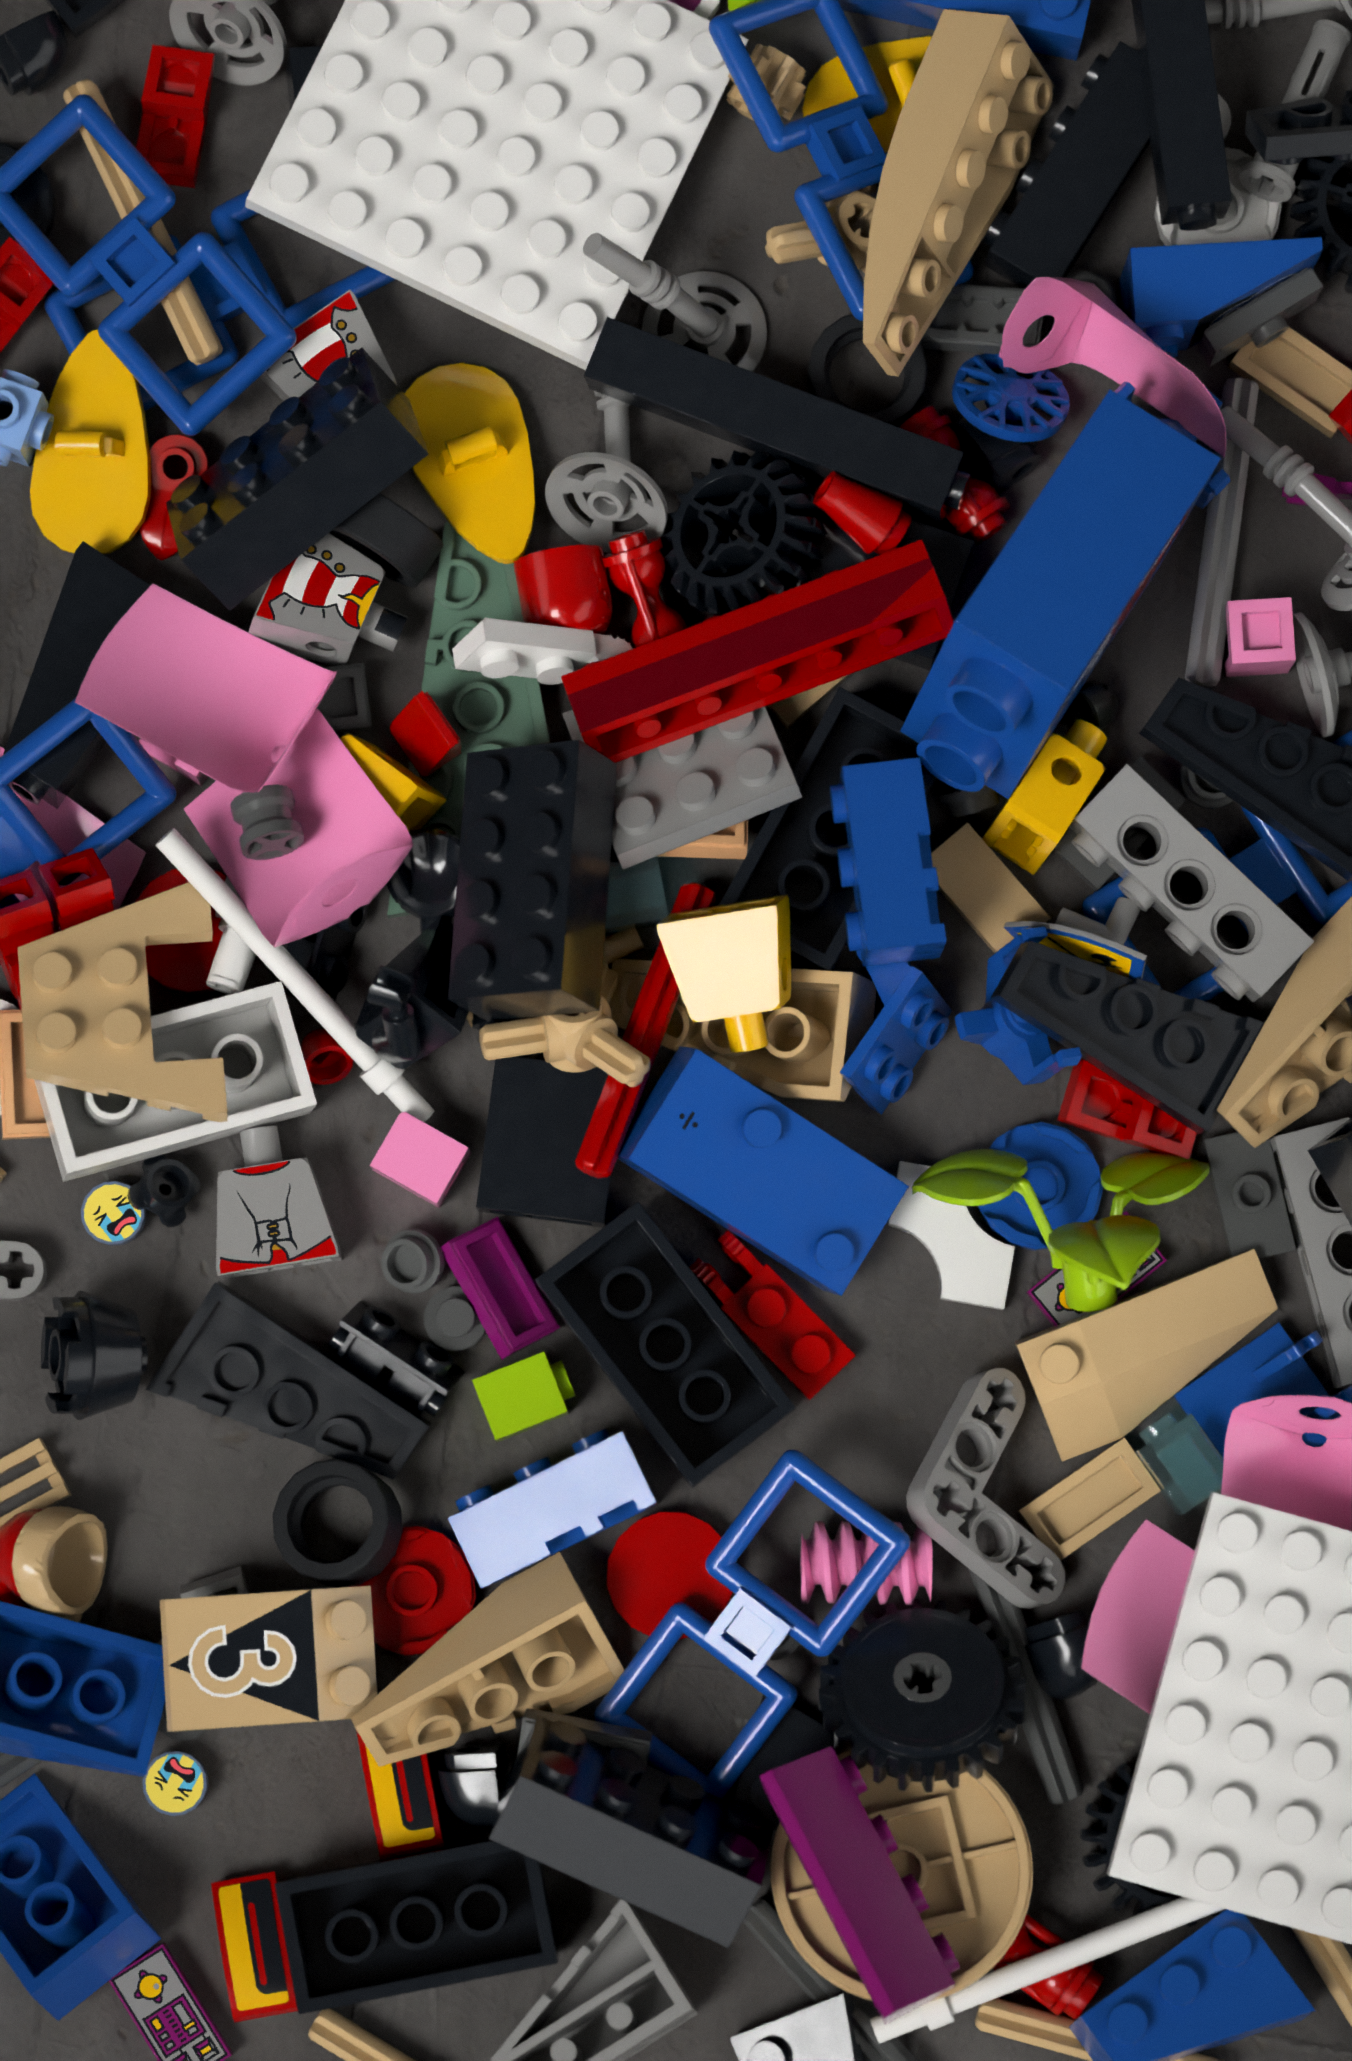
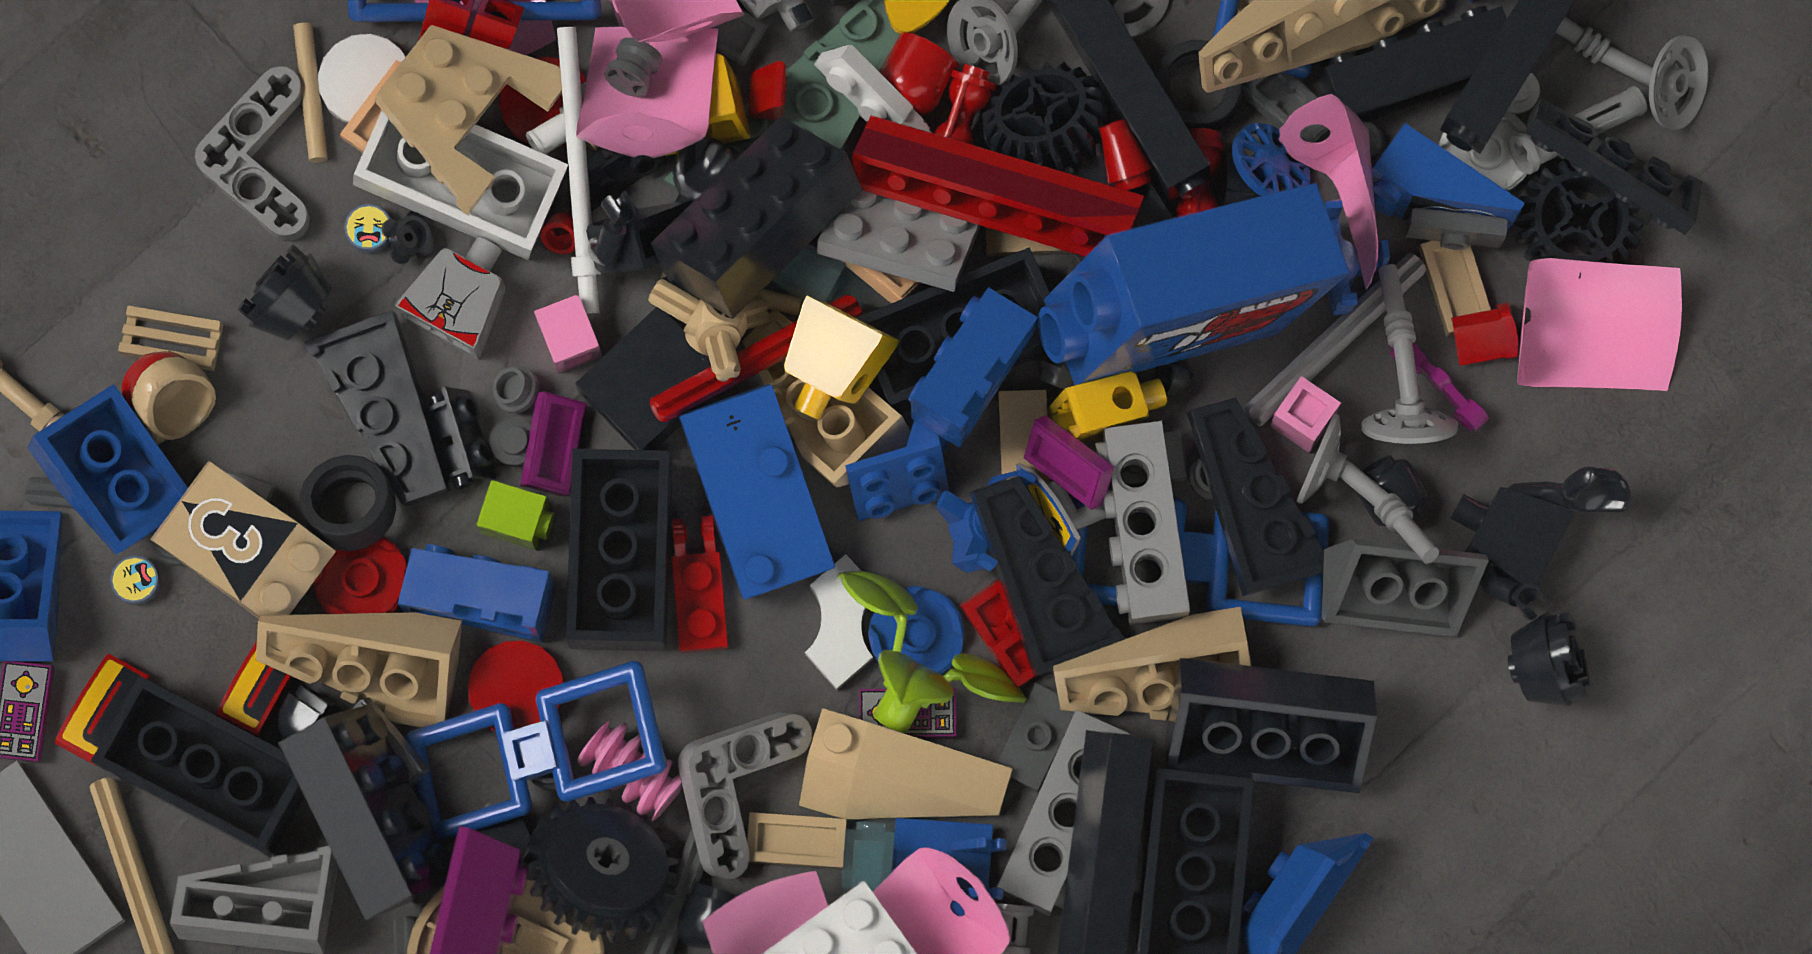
camera: 40 degrees right, 5 degrees down
(1062, 883) = (1068, 462): none -> magenta tile

